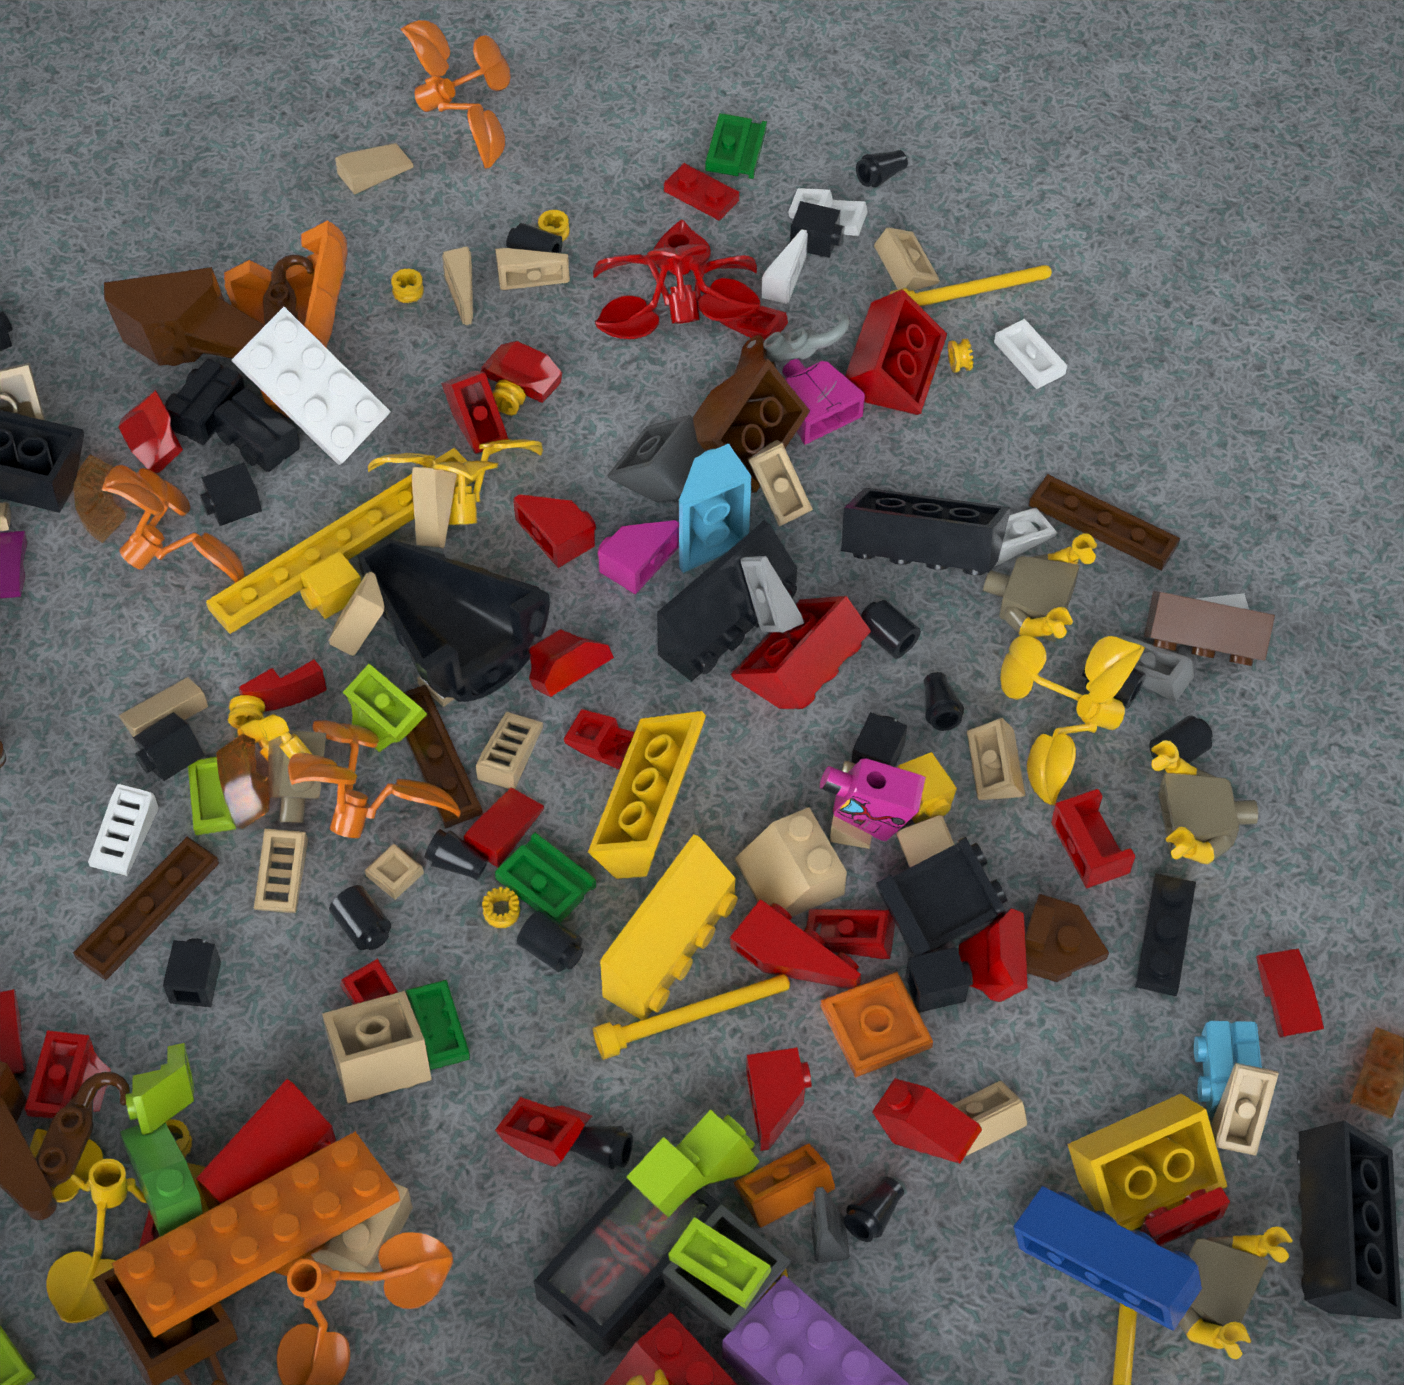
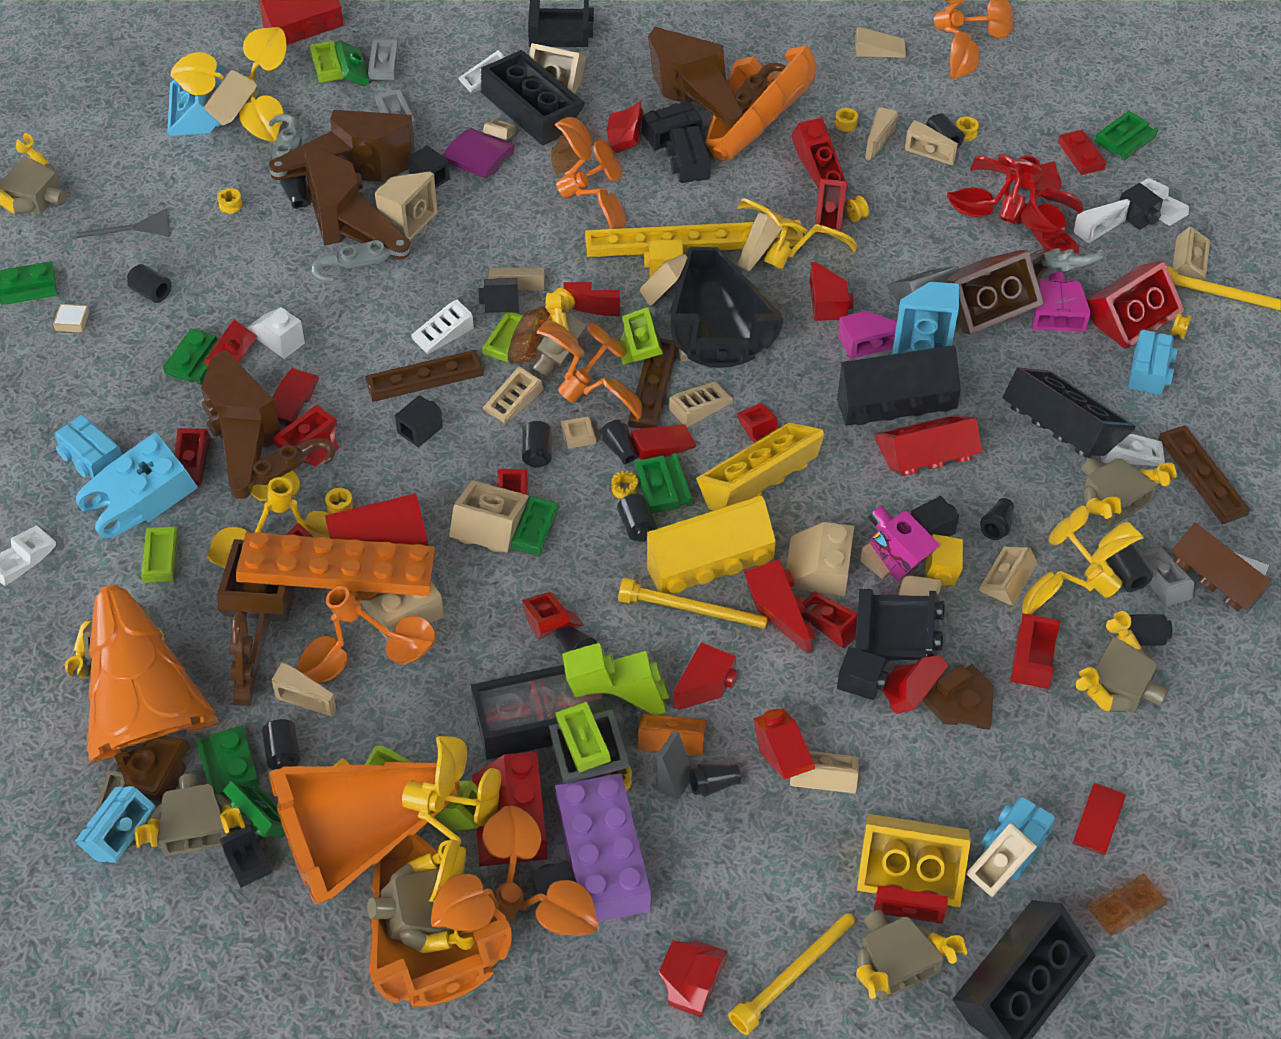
camera: 35 degrees right, 5 degrees down
(162, 1092) = (351, 469): lime slope -> none
(163, 1177) = (311, 506): bright green slope -> none
(230, 494) = (645, 181): black brick -> none
(311, 386) = (735, 140): white plate -> none
(411, 349) = (817, 151): none -> red slope
(524, 367) = (882, 199): red slope -> none
(564, 660) = (773, 370): red slope -> none
(769, 596) = (925, 399): light grey slope -> none
(779, 483) = (990, 337): tan slope -> none
(876, 1024) = (803, 678): orange tile -> none
(879, 167) = (1215, 190): black cone -> none
(890, 628) = (998, 459): black brick -> none
(963, 417) = (1151, 362): none -> medium azure brick
(1030, 354) = (1232, 348): white plate -> none
(1109, 1257) = (837, 891): blue brick -> none
(1165, 934) = (1041, 736): black plate -> none

